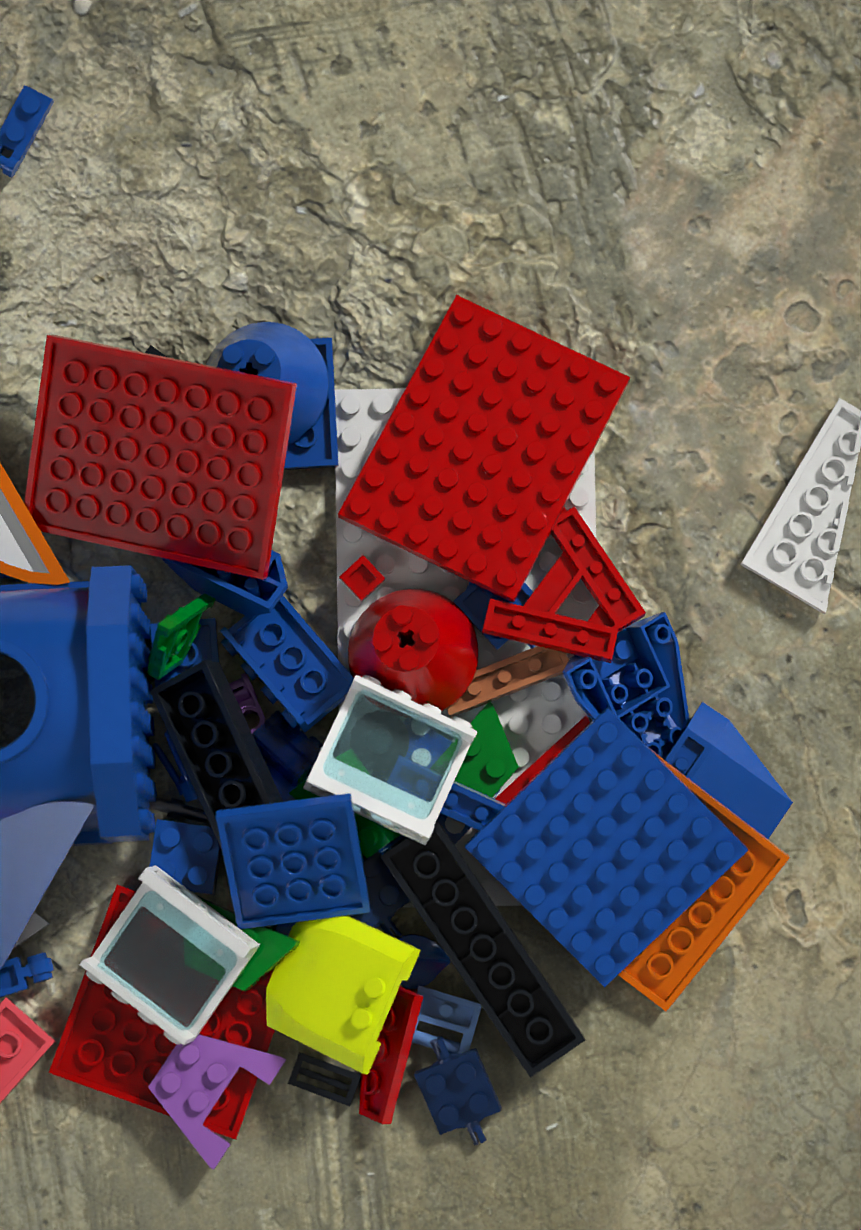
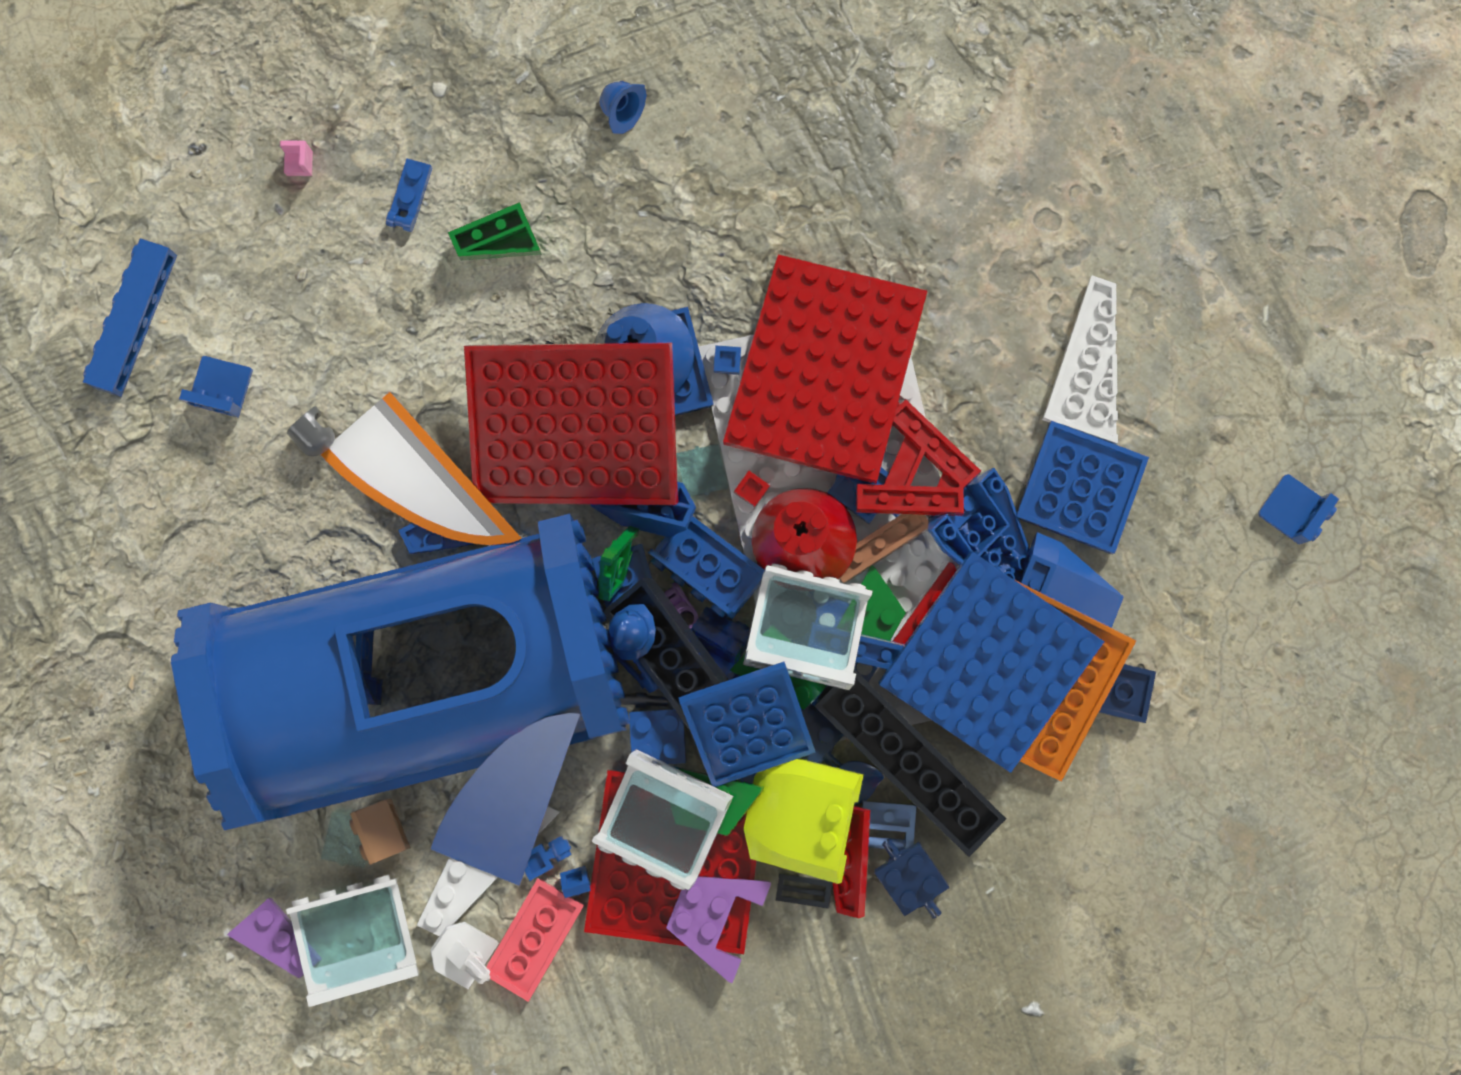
camera: 15 degrees left, 0 degrees up
(50, 1010) = (575, 881): none -> blue plate
(114, 204) = (496, 236): none -> green wedge
(179, 722) = (632, 632): none -> blue piece
(303, 71) = (623, 105): none -> blue piece
(308, 543) = (702, 470): none -> clear light blue piece
(365, 414) = (727, 360): none -> blue plate
(770, 658) = (1082, 487): none -> blue plate
(772, 922) = (1130, 694): none -> dark blue plate

